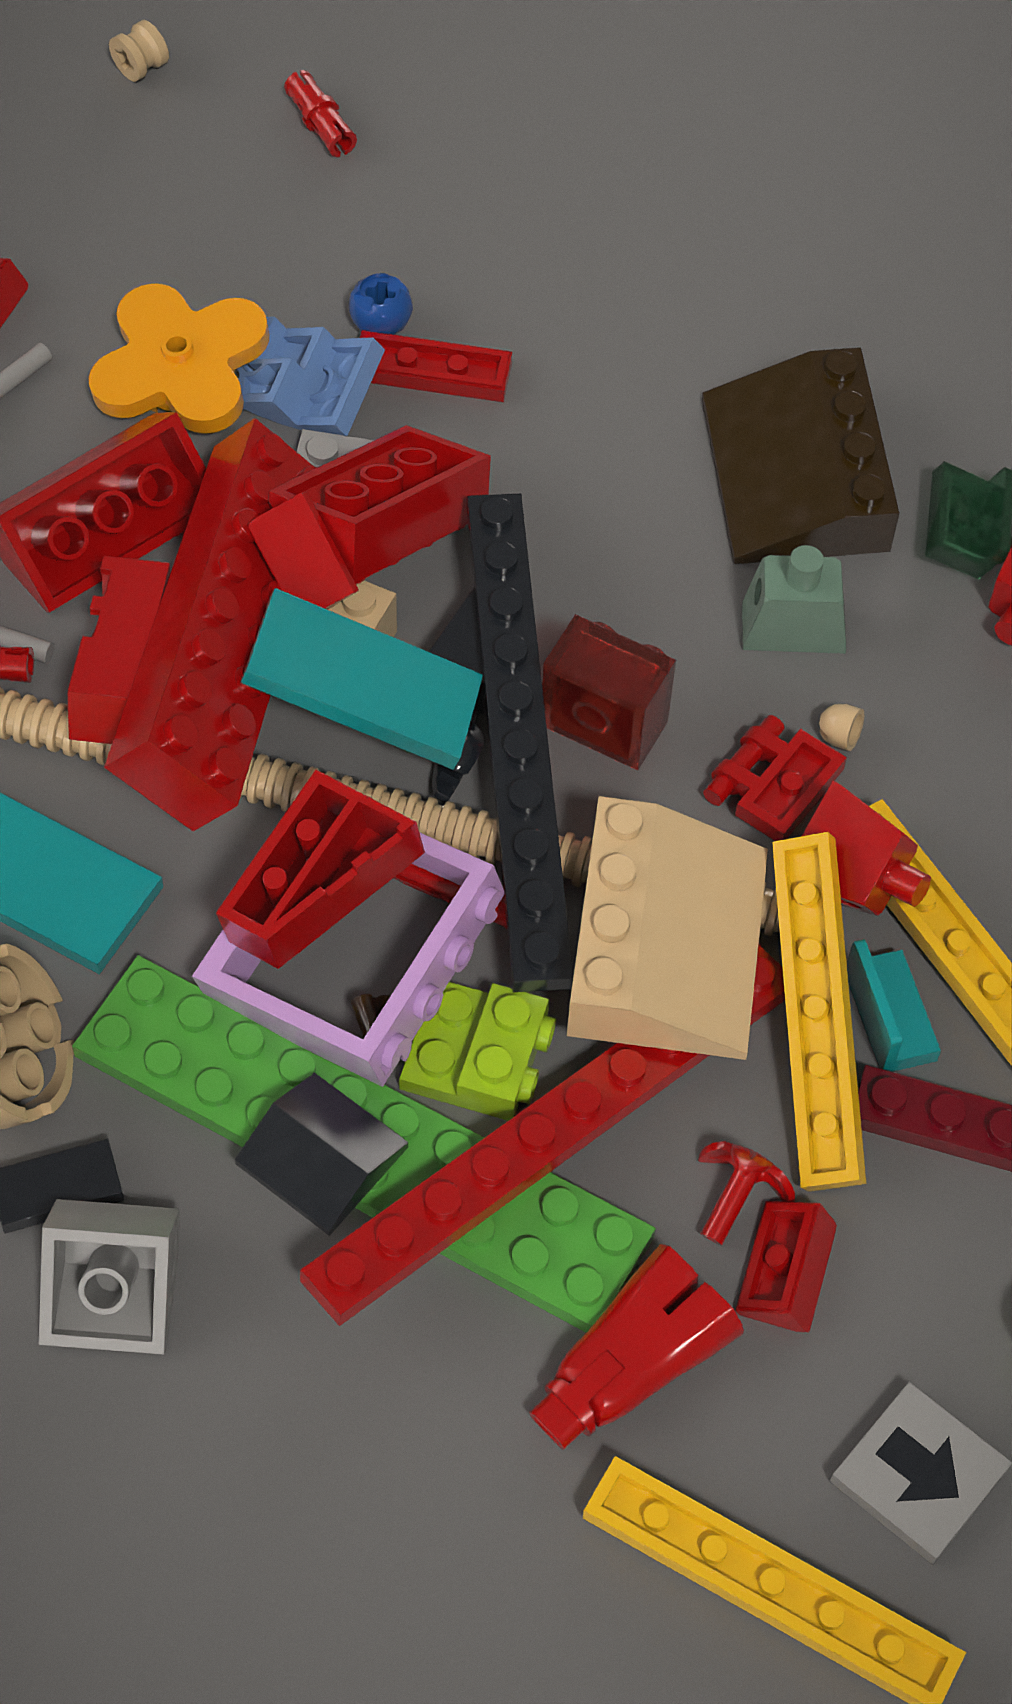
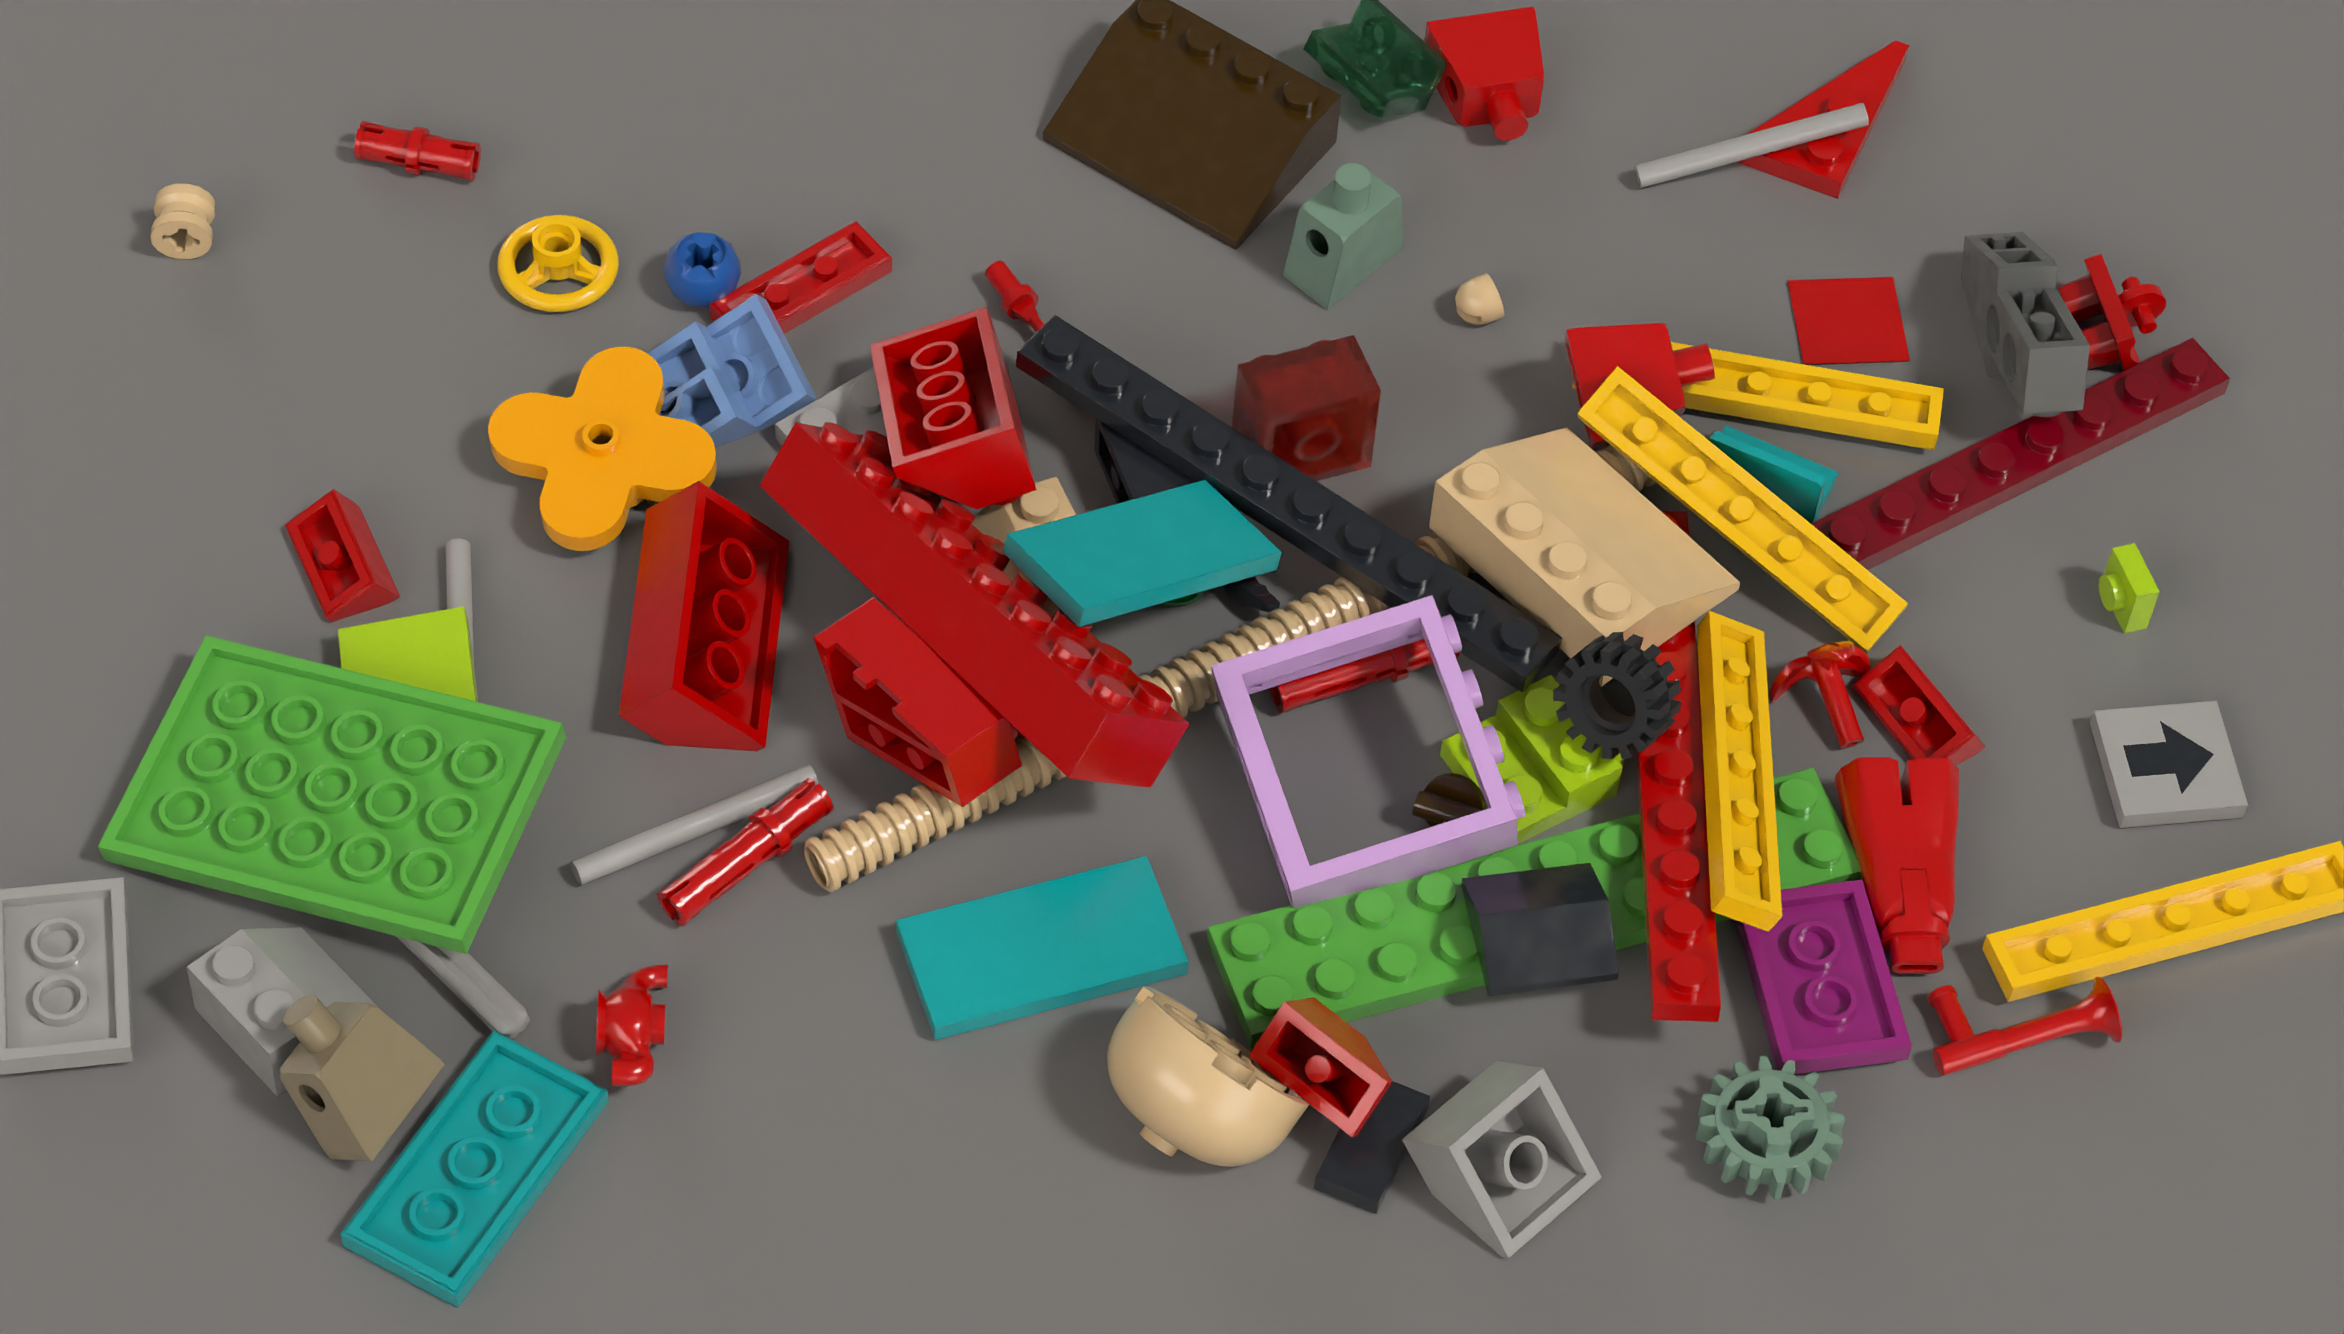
camera: 50 degrees left, 5 degrees down
(72, 1097) = (1323, 1062): none -> red slope
(279, 1453) = (1770, 1127): none -> sand green gear
(302, 553) = (979, 492): red slope -> none
(311, 228) = (558, 257): none -> yellow piece
(316, 869) = (1312, 706): red wedge -> none
(470, 1371) = (1825, 981): none -> magenta plate
(509, 1522) = (1966, 1050): none -> red piece
(537, 1044) = (1641, 677): none -> black tyre
(547, 482) = (1018, 299): none -> red piece
(574, 1177) = (1738, 772): none -> yellow plate
(786, 789) = (1502, 378): red plate -> none

